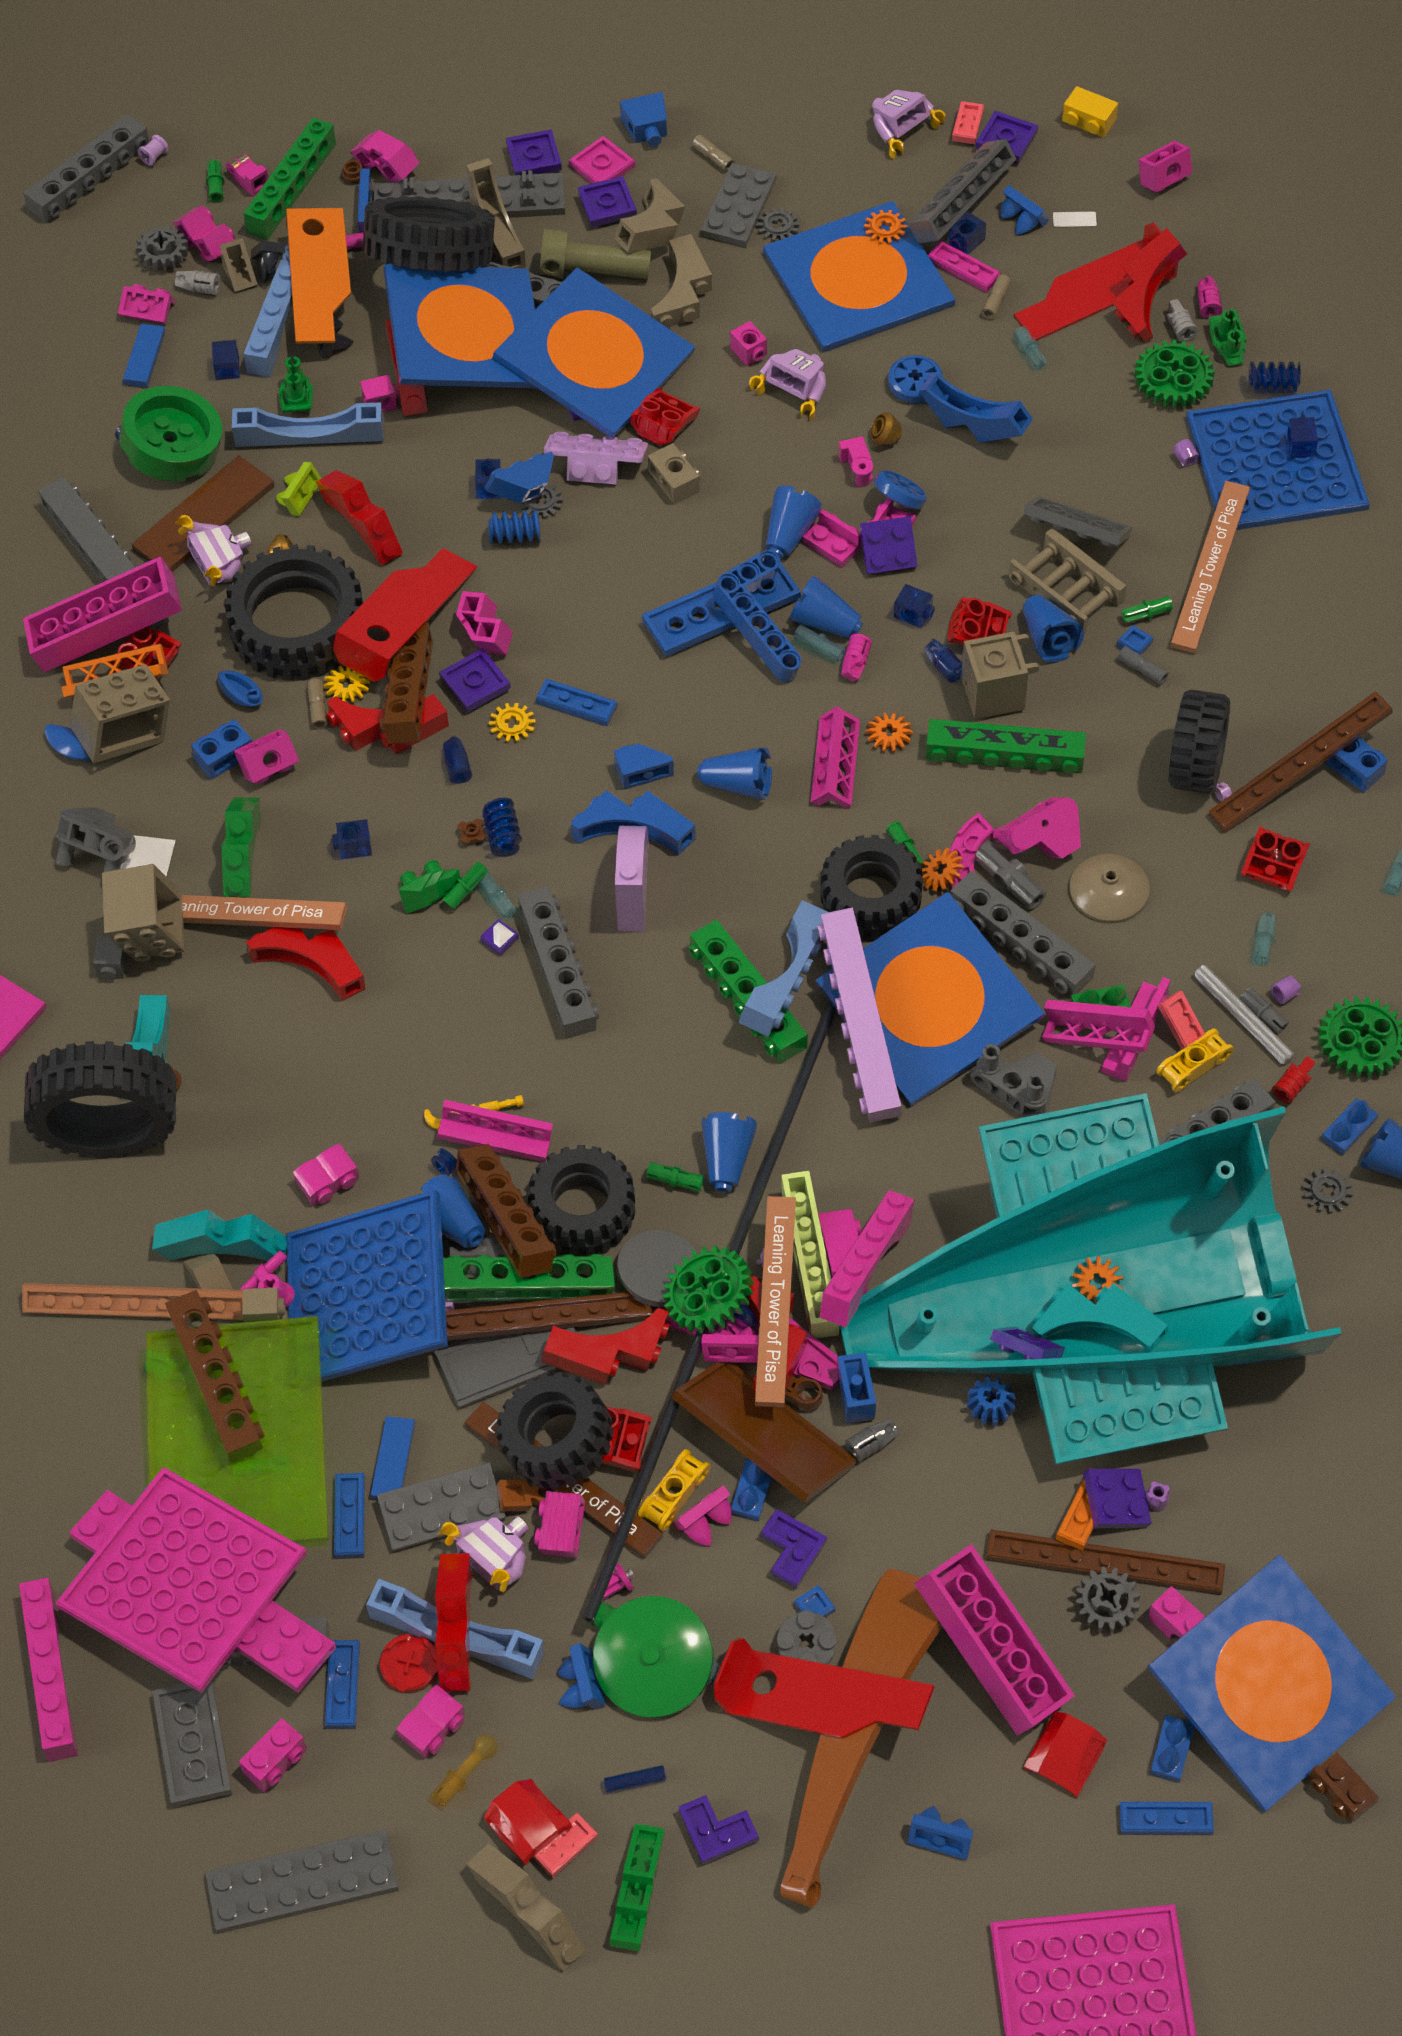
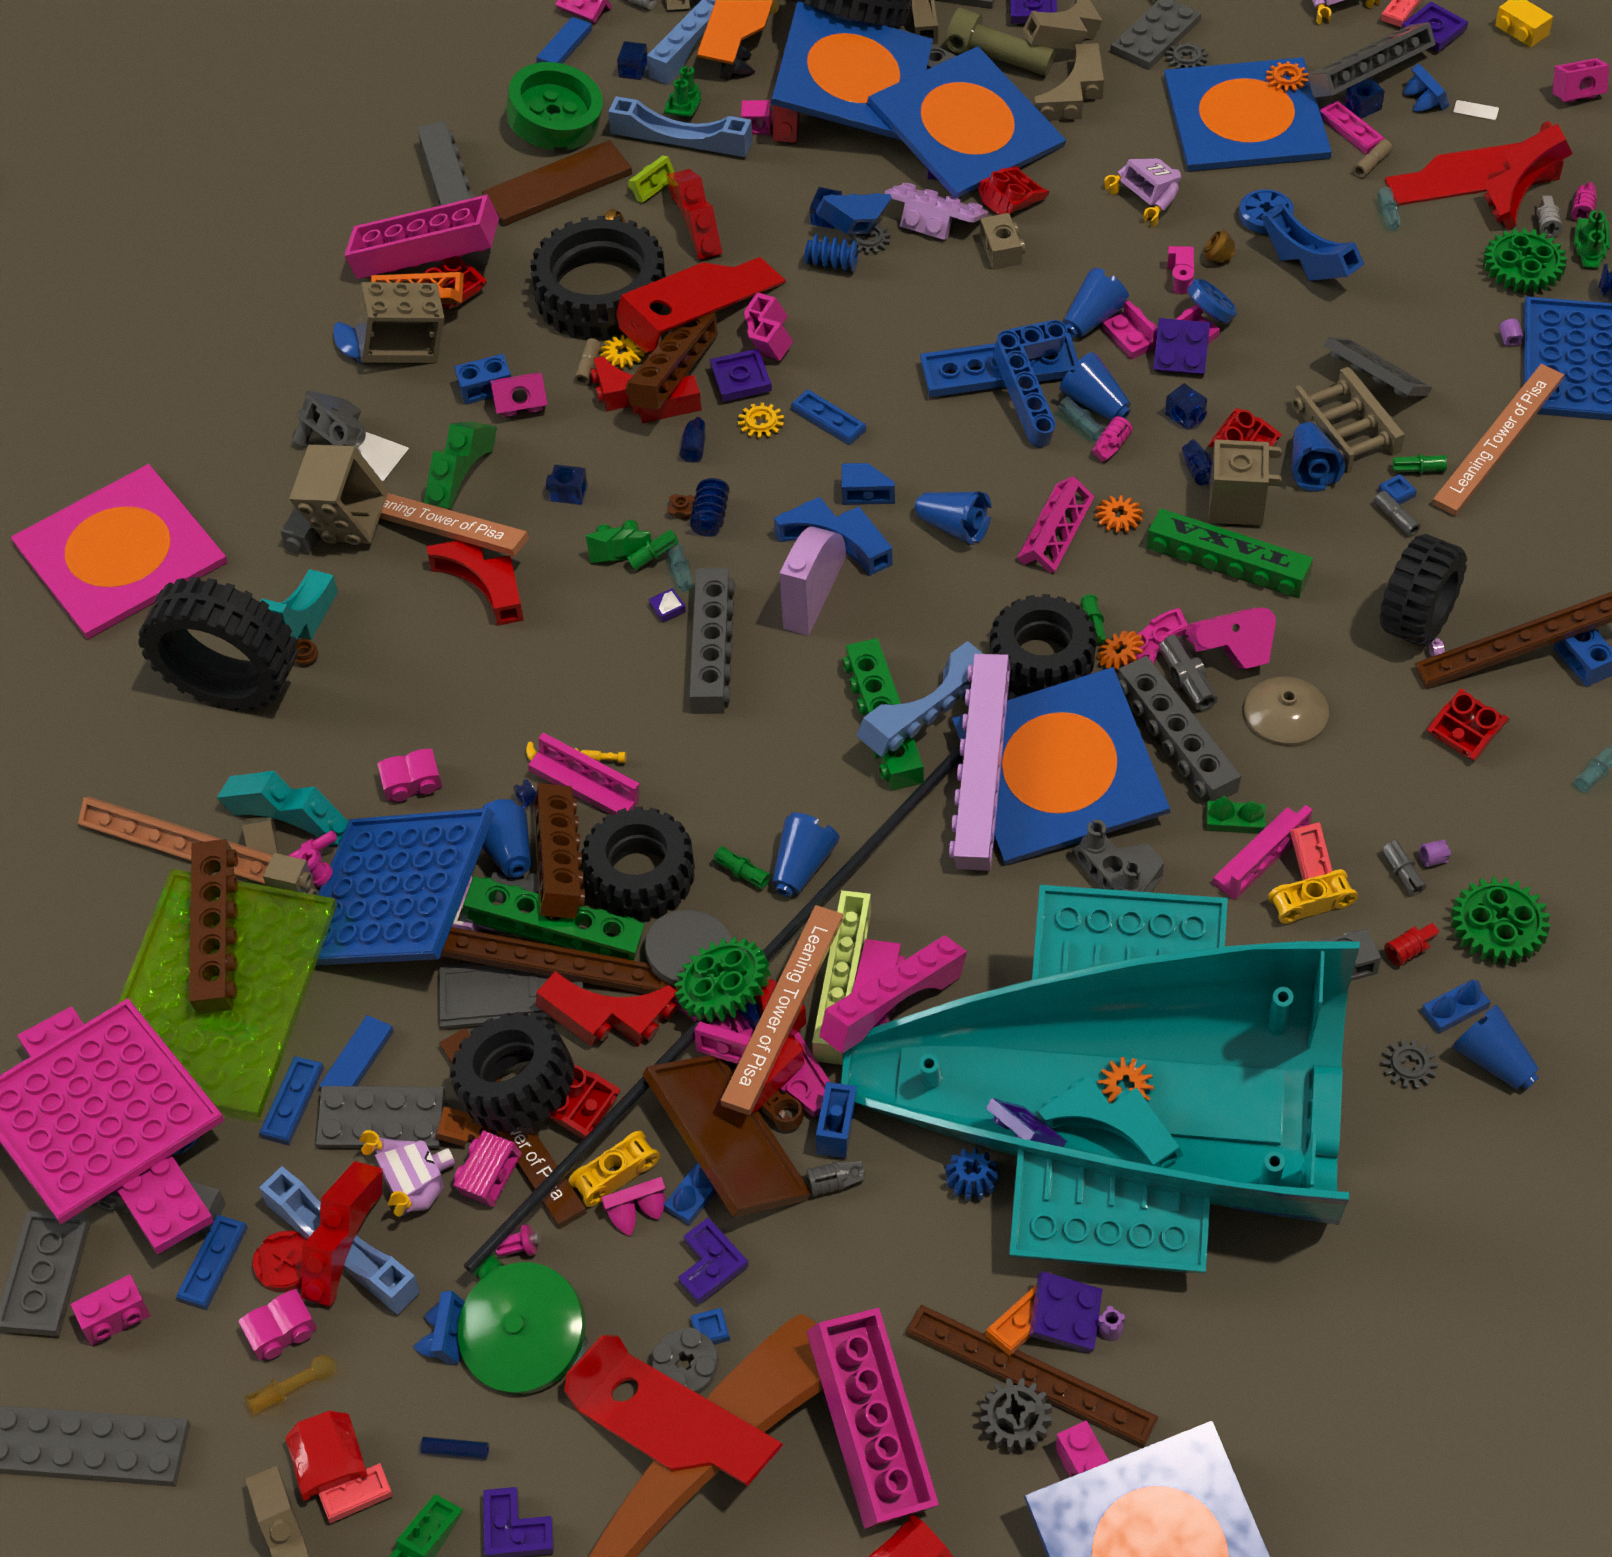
camera: 20 degrees right, 5 degrees down
(214, 549) = (549, 206): torso -> none
(239, 688) = (523, 332): blue arm -> none
(748, 343) = (1116, 146): dark pink brick -> none
(1101, 1020) = (1226, 829): dark pink fence -> none
(1243, 1014) = (1382, 867): light grey axle -> none
(1264, 938) = (1429, 798): clear light blue axle -> none

